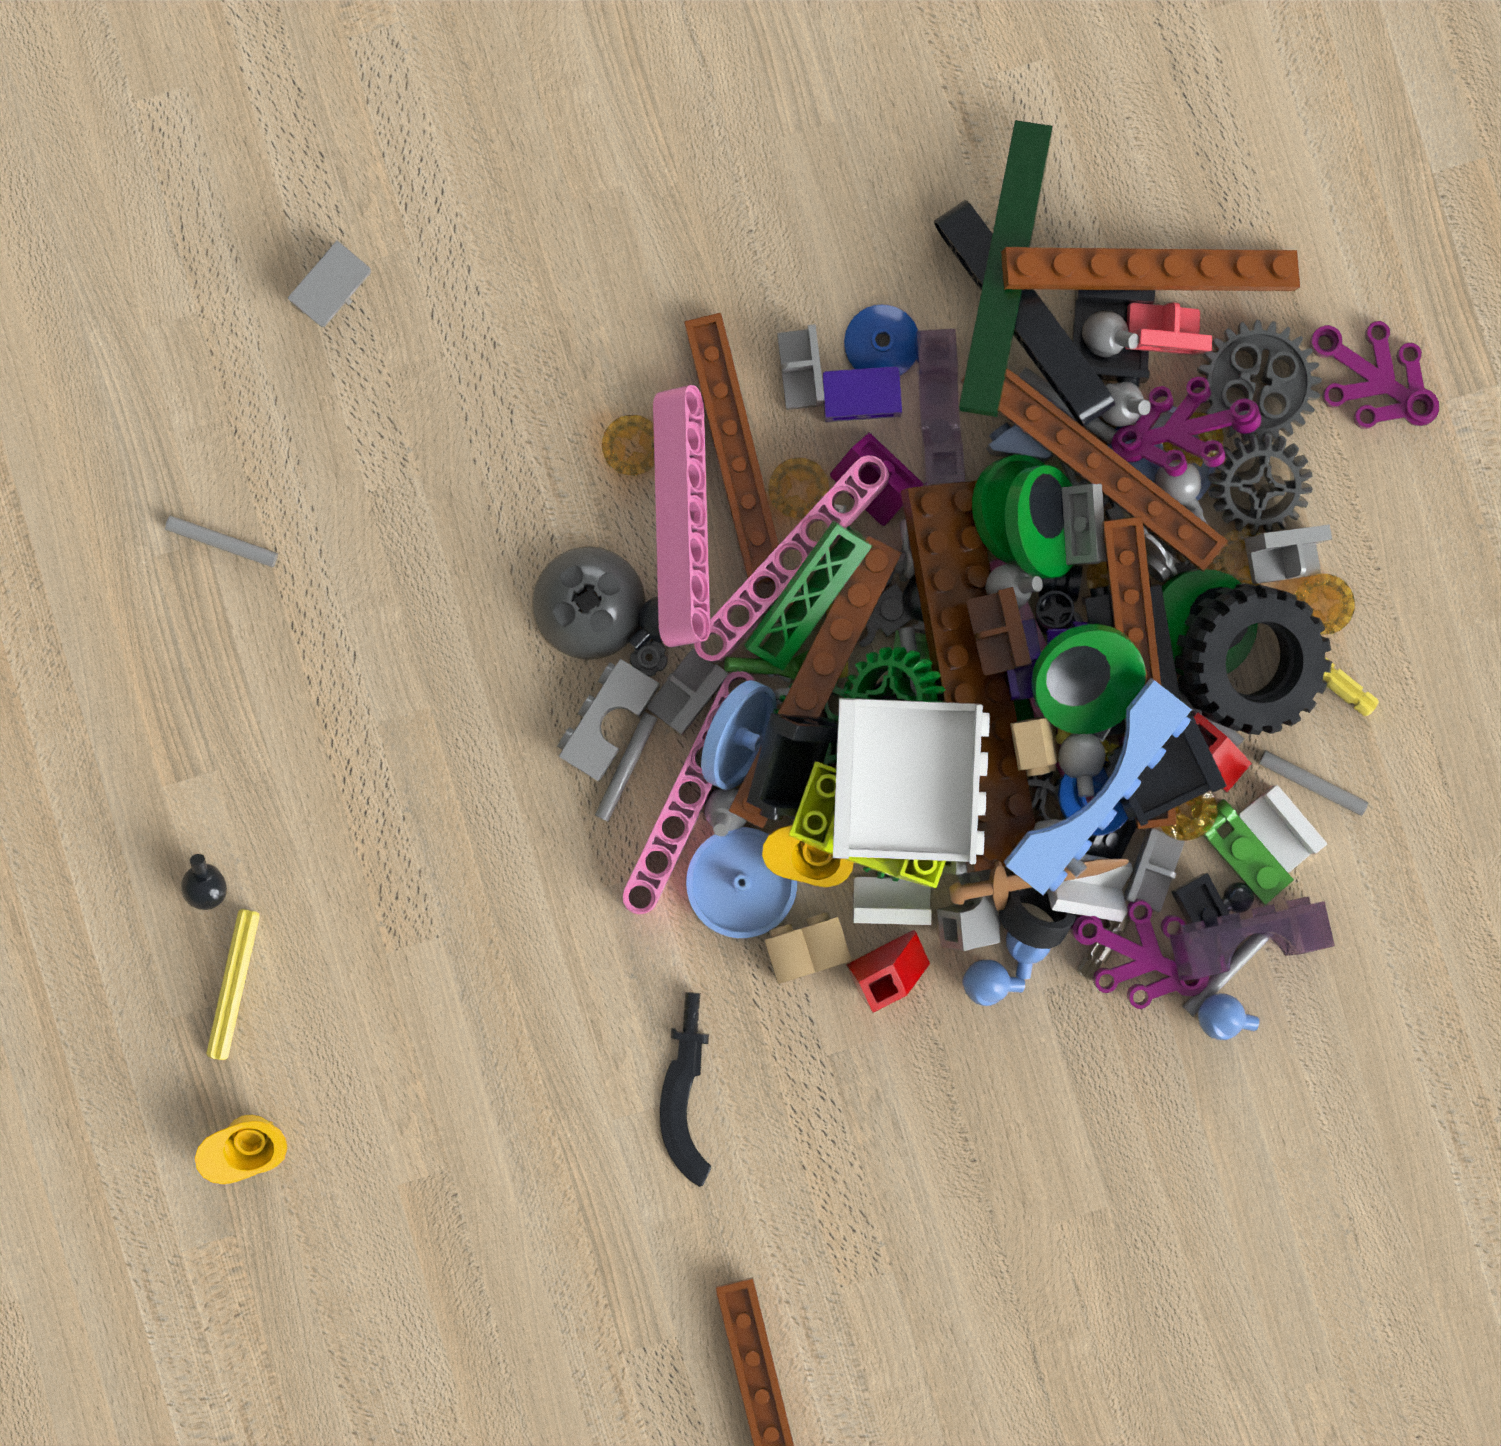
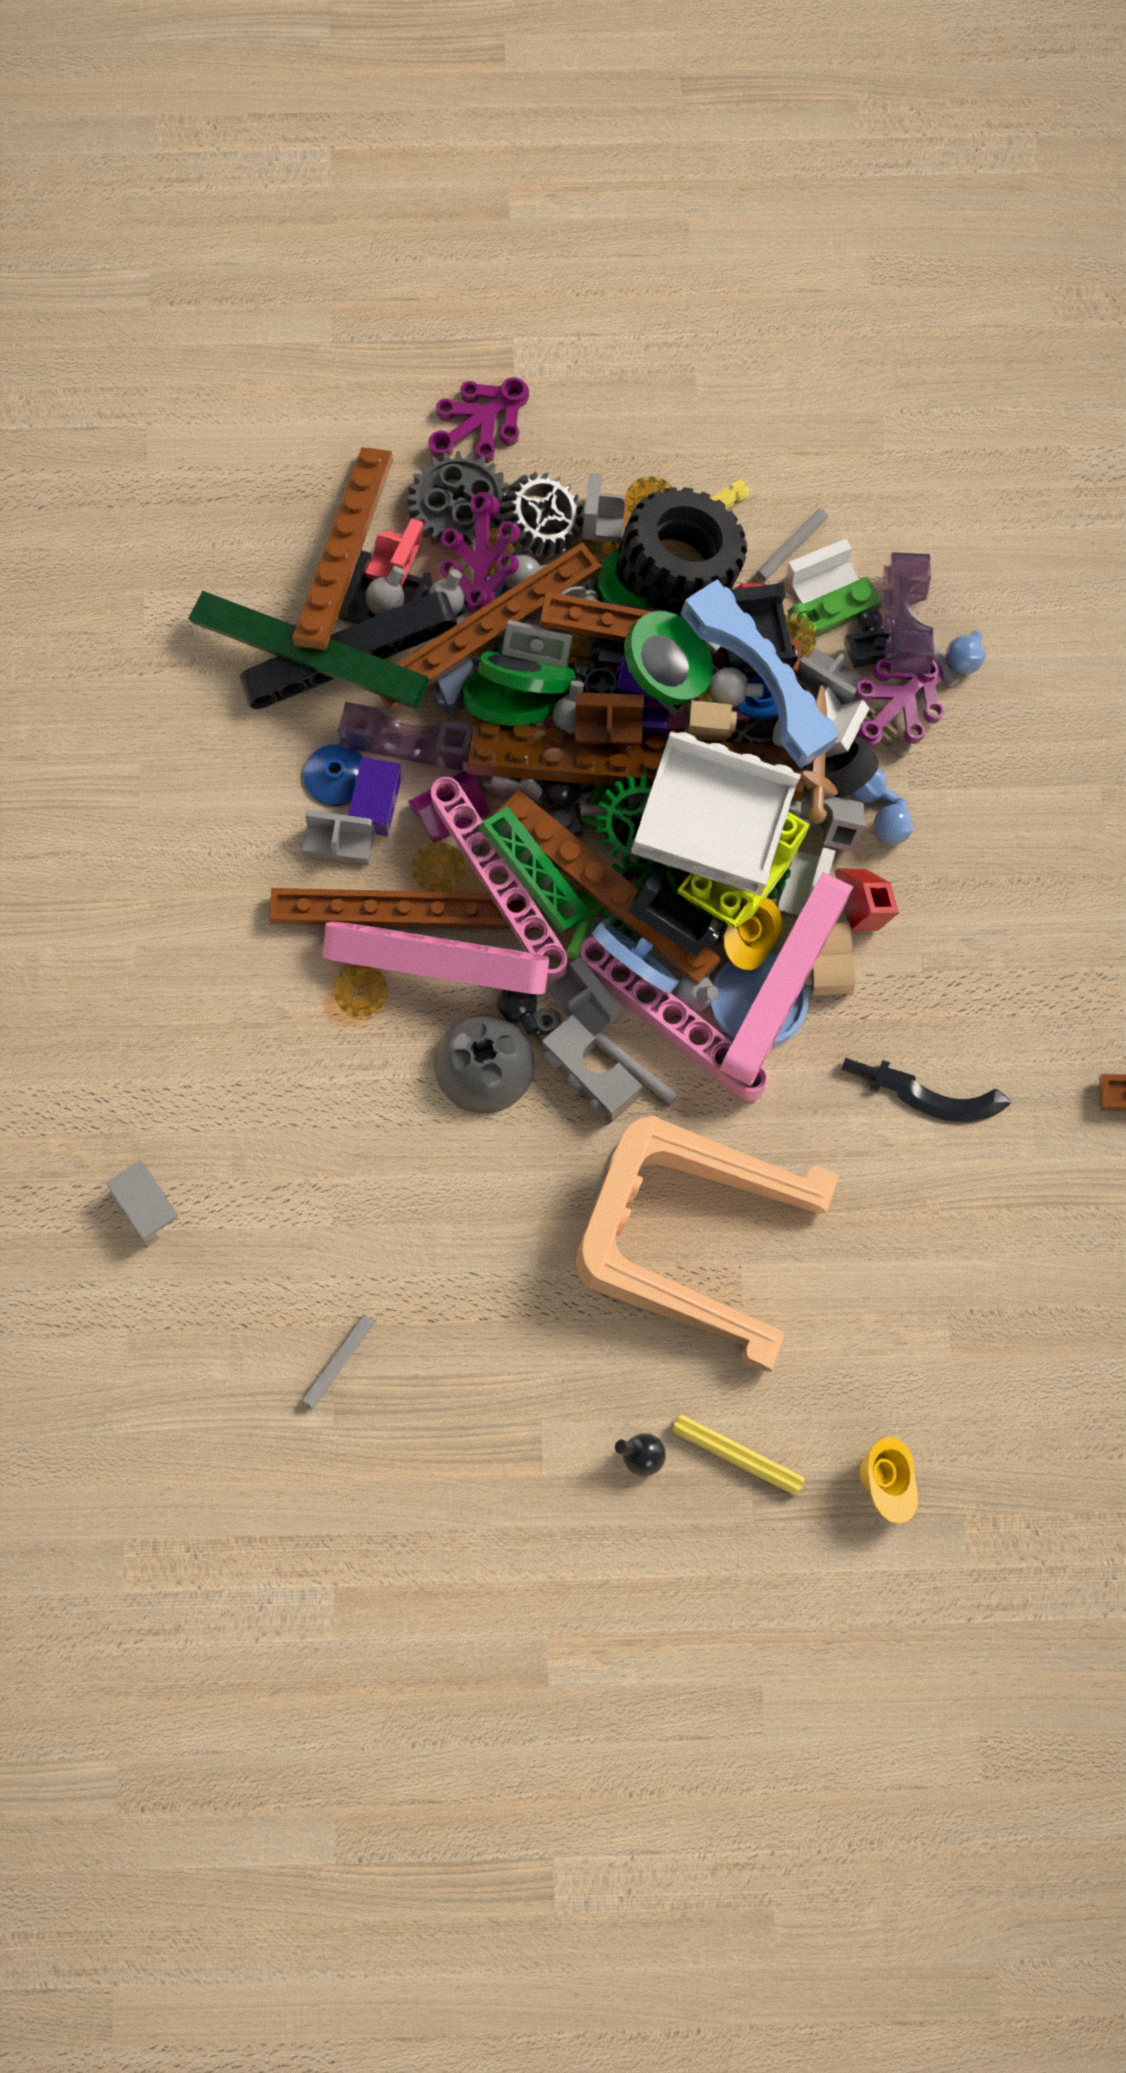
camera: 80 degrees left, 15 degrees down
(523, 791) = (661, 1143): none -> light nougat piece
(759, 907) = (786, 979): none -> bright pink beam

